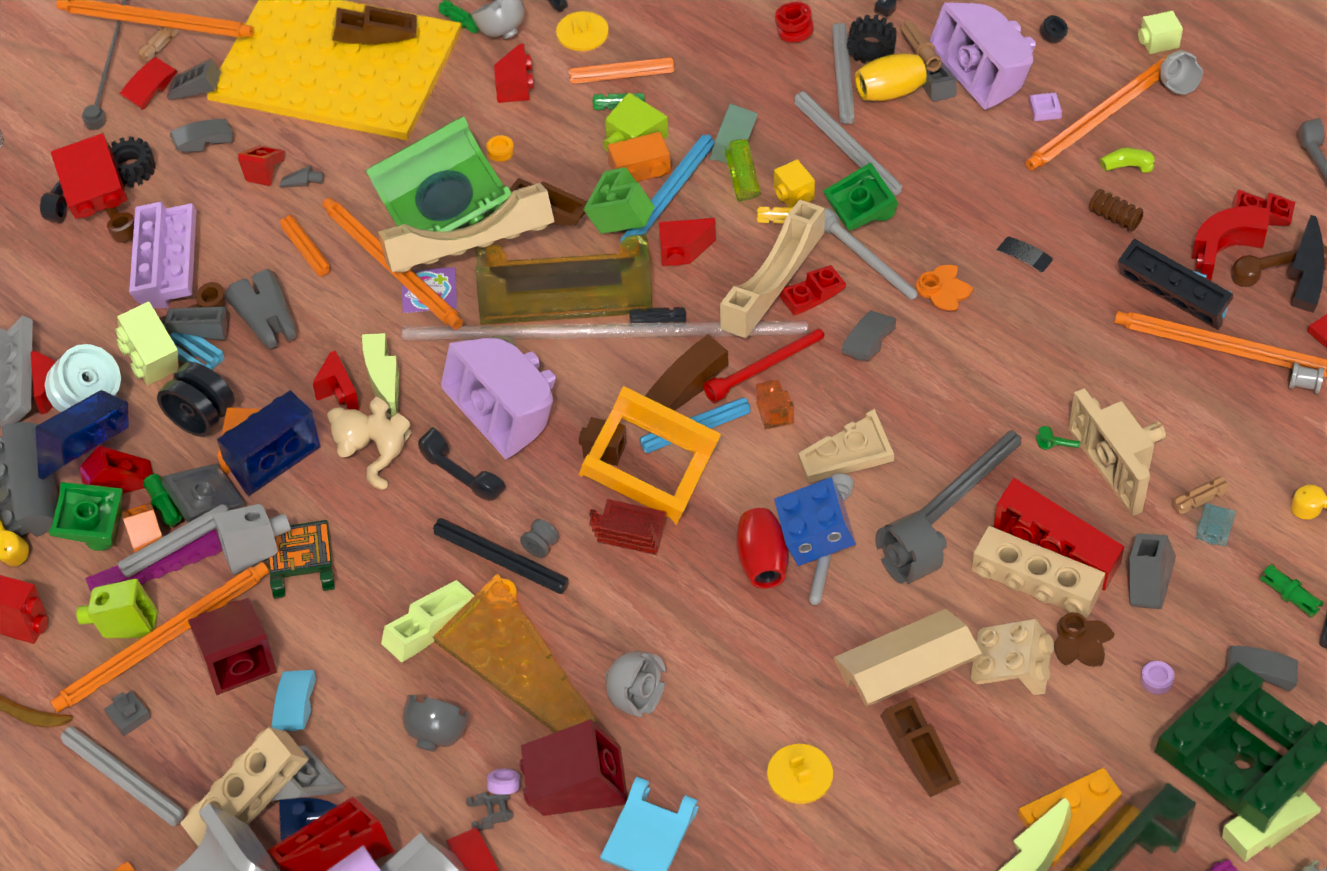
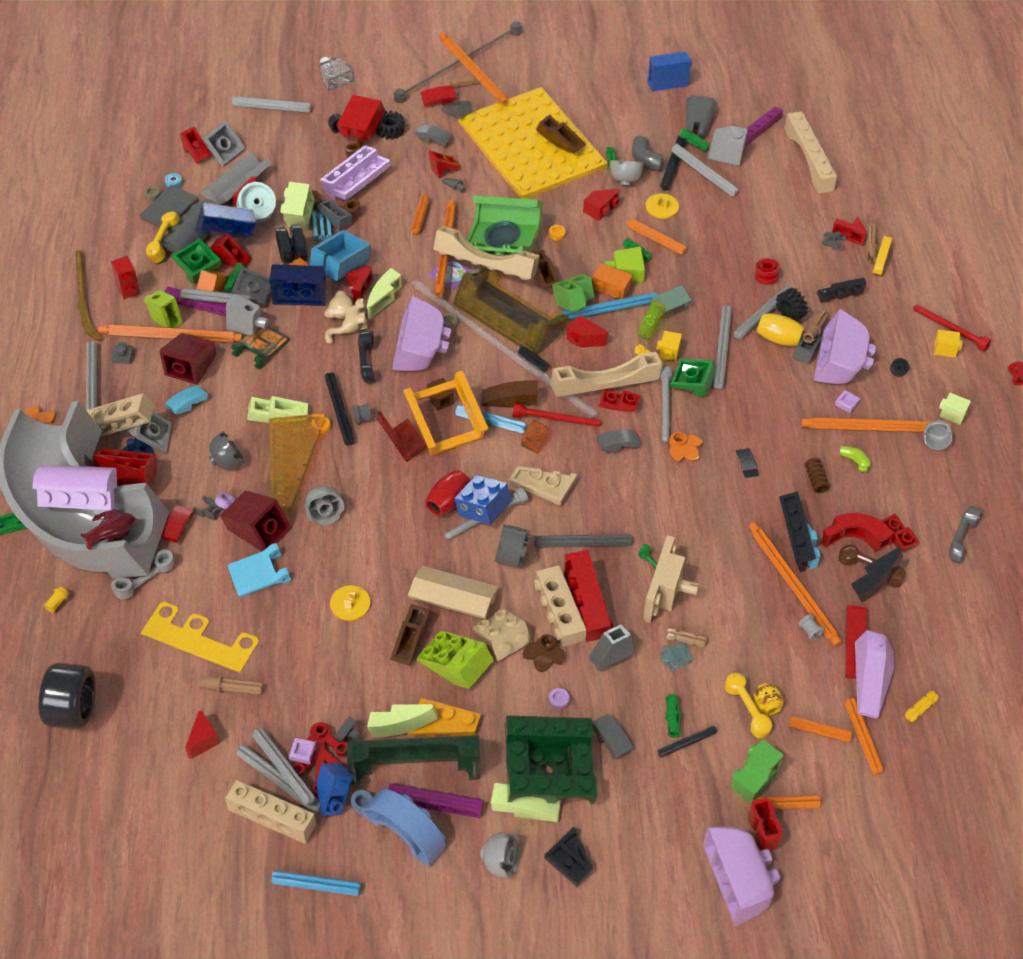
camera: 40 degrees right, 0 degrees up
(264, 309) = (370, 224): dark grey piece -> none
(278, 363) = (340, 254): none -> dark azure piece
(1000, 729) = (456, 658): none -> lime slope

